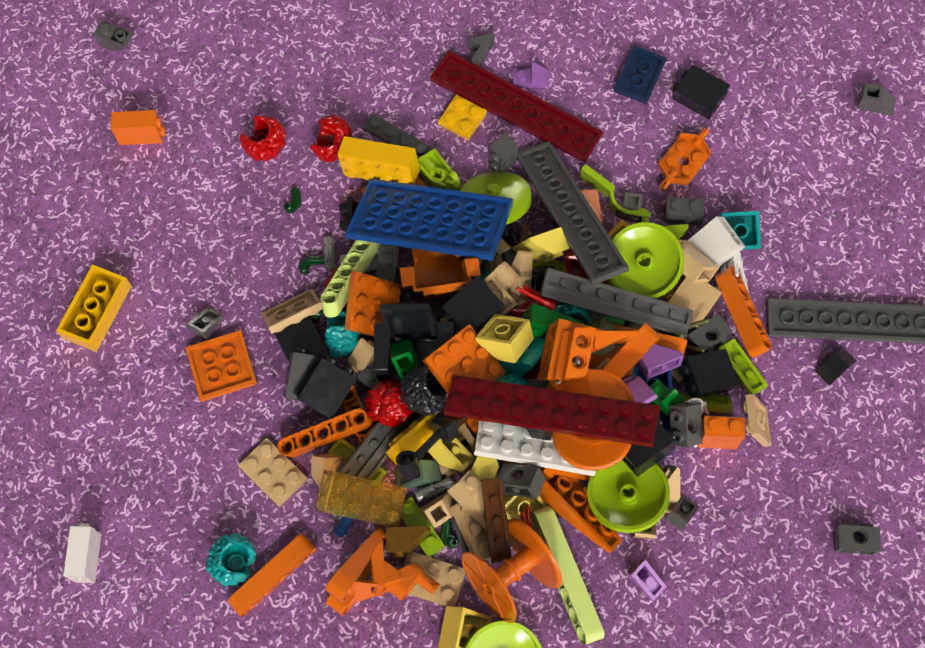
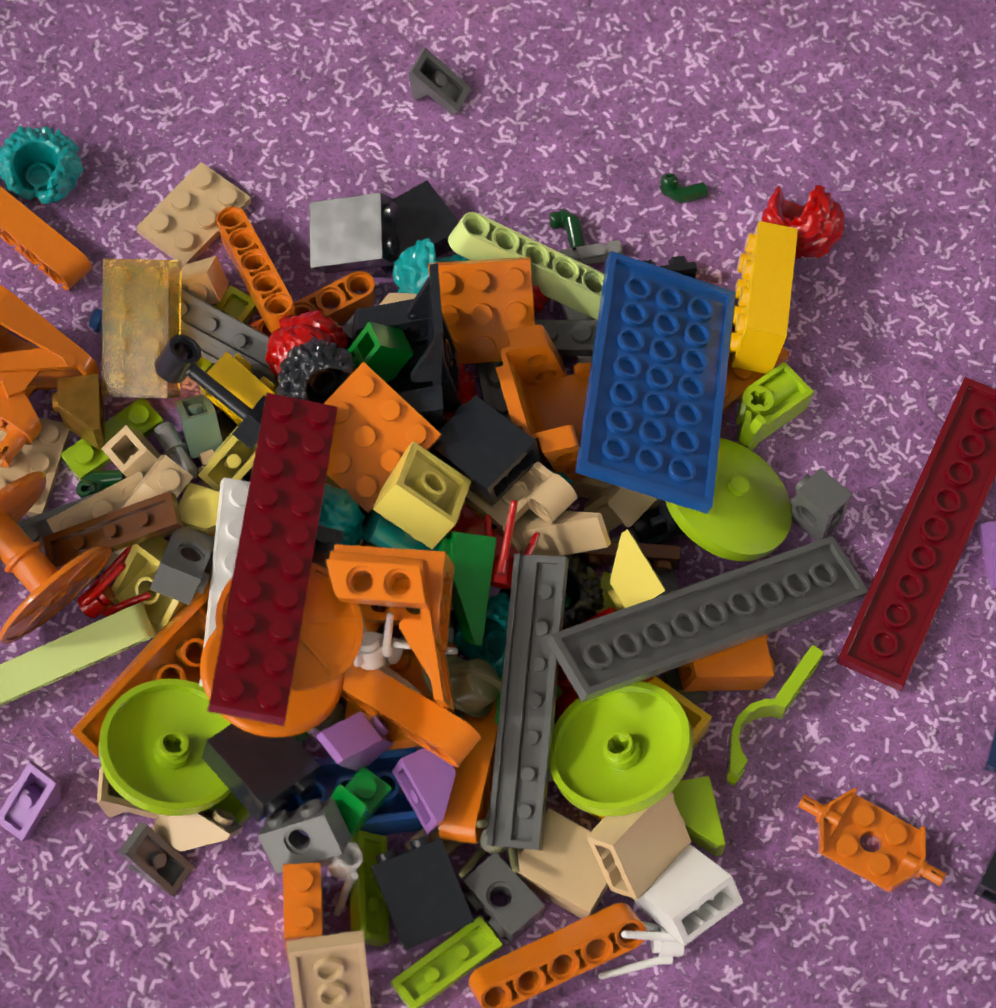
camera: 80 degrees right, 5 degrees down
(221, 366) = (369, 118): orange plate -> none
(267, 139) = (782, 131): red hair -> none
(292, 311) = (465, 192): tan plate -> none
(327, 386) = (330, 255): black brick -> none
(393, 135) = (834, 337): dark grey plate -> none
(462, 117) = (895, 443): yellow plate -> none
(632, 201) = (765, 752): light grey tile -> none
(684, 211) = (756, 841): dark grey brick -> none
(746, 227) = (732, 952): teal slope -> none

